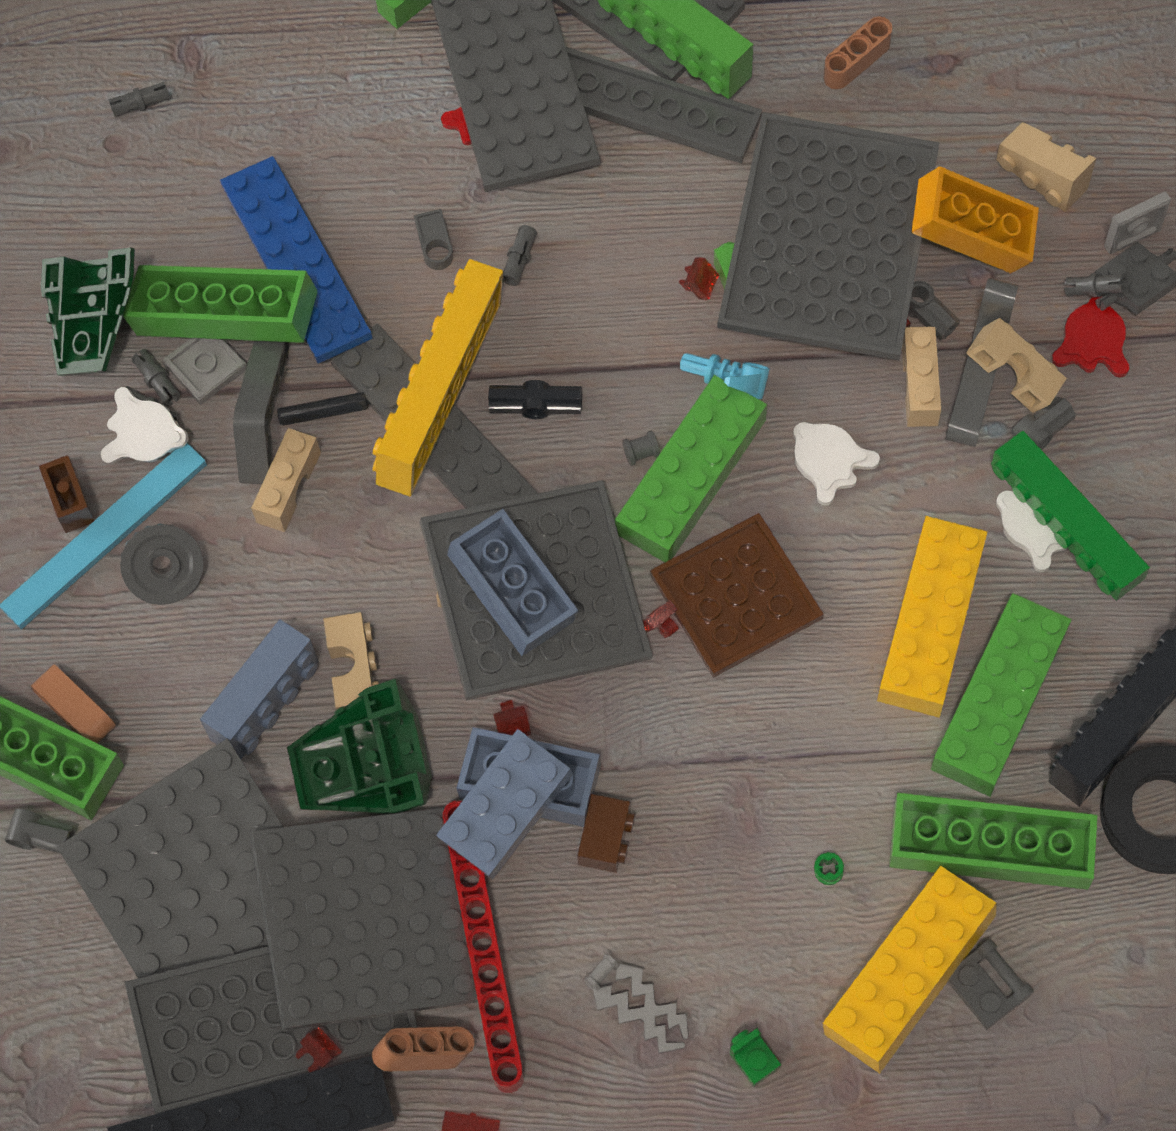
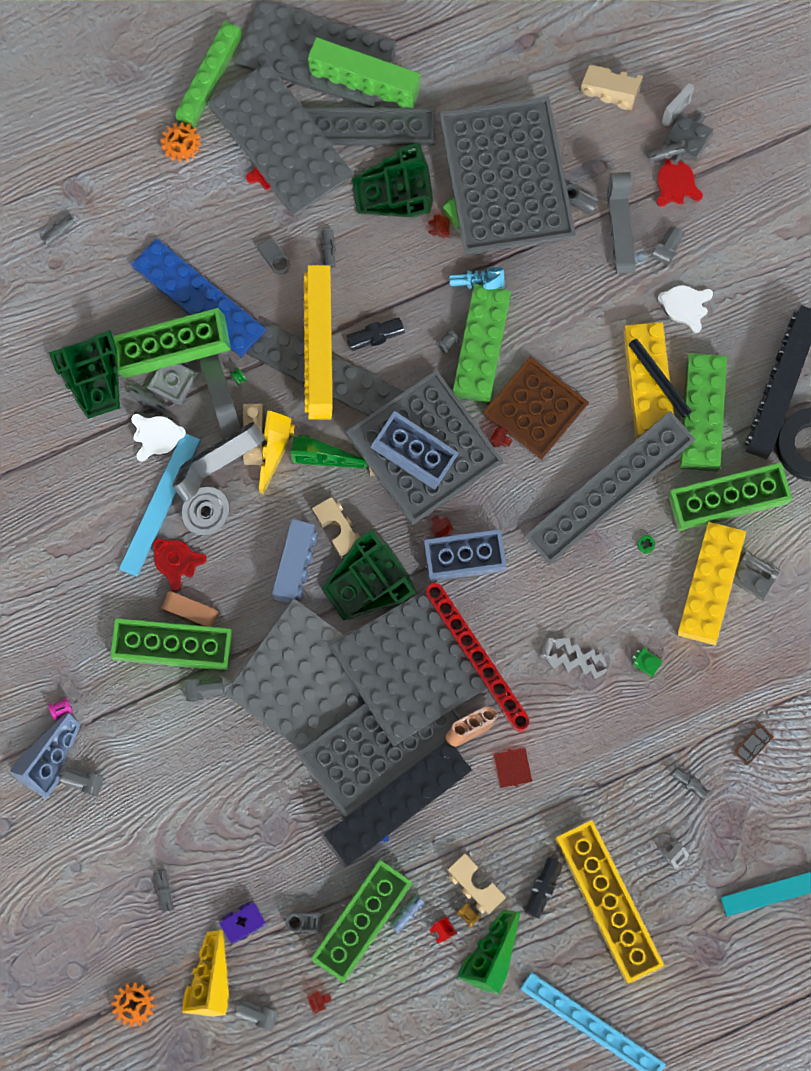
camera: 25 degrees left, 10 degrees up
(66, 494) = (130, 489): reddish brown brick -> none
(88, 625) = (176, 560): none -> red tile
(206, 491) = (228, 449): none -> beam
(302, 389) = (238, 376): none -> green bush
(319, 498) = (277, 435): none -> yellow wedge
(319, 1047) = (417, 747): clear red tile -> none
(322, 408) = (254, 383): black axle -> none
(364, 538) = (314, 452): none -> green wedge
(368, 37) = (172, 145): none -> orange gear
(505, 804) = (462, 577): sand blue brick -> none
(605, 833) = (518, 571): reddish brown brick -> none
(658, 199) = (396, 185): none -> dark green wedge
(802, 755) = (610, 487): none -> dark grey plate
(828, 457) = (554, 308): white tile -> none
(861, 41) = (472, 59): nougat beam -> none
(922, 376) = (593, 247): tan arch -> none
(948, 613) = (660, 378): none -> black axle
(975, 220) = (587, 137): light orange brick -> none
(1036, 377) = (655, 220): tan arch -> none
(1069, 516) = (702, 295): green brick -> none

